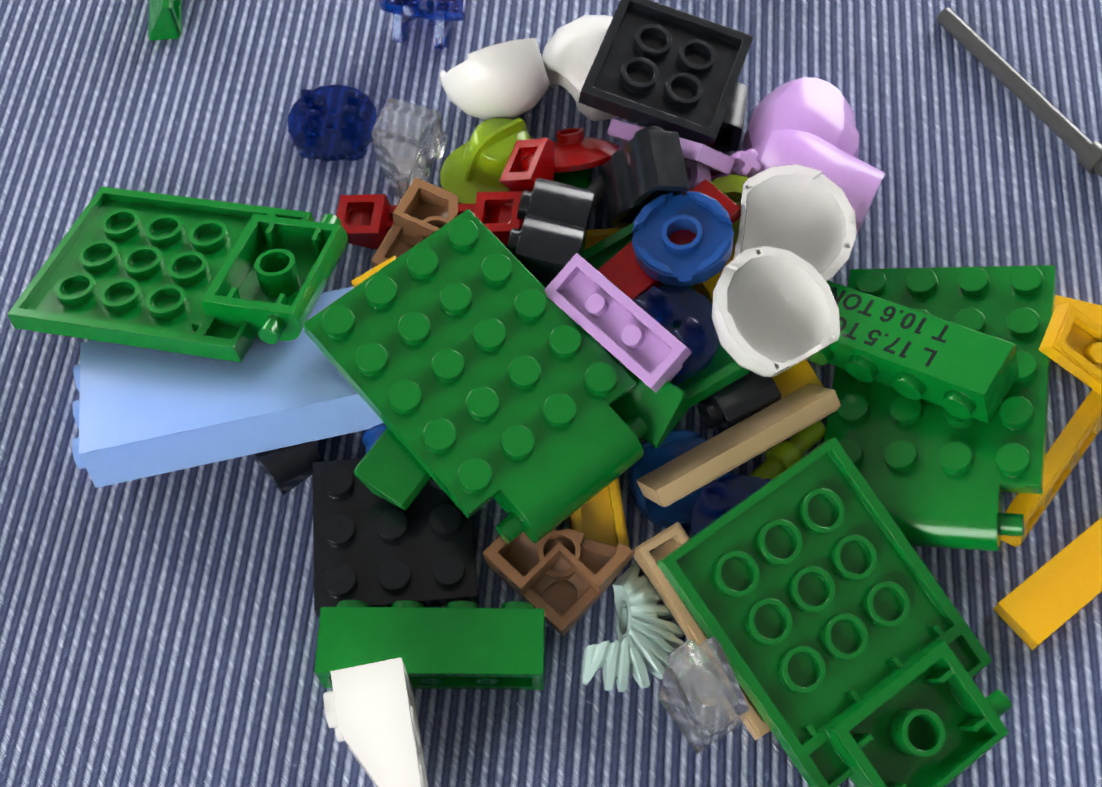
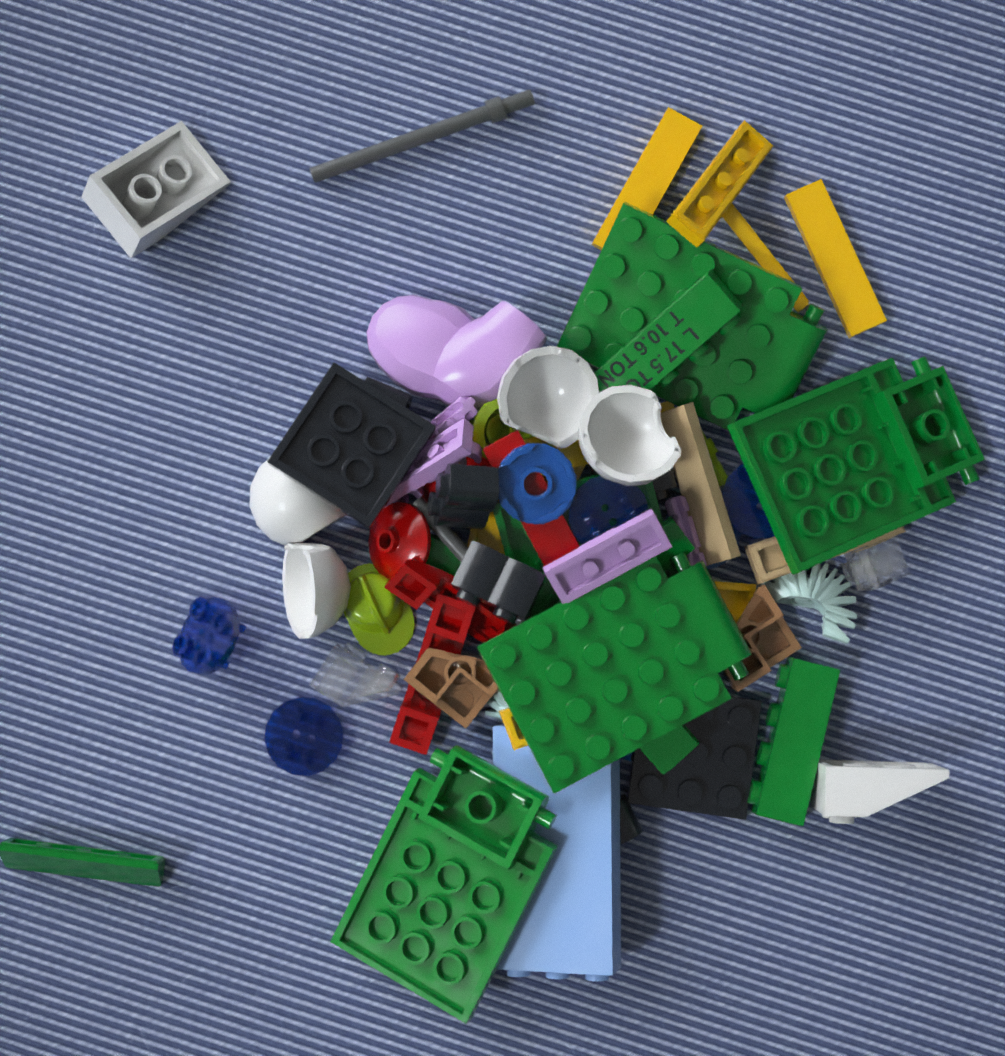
camera: 75 degrees left, 25 degrees up
(675, 445) = (677, 508): none -> lavender axle

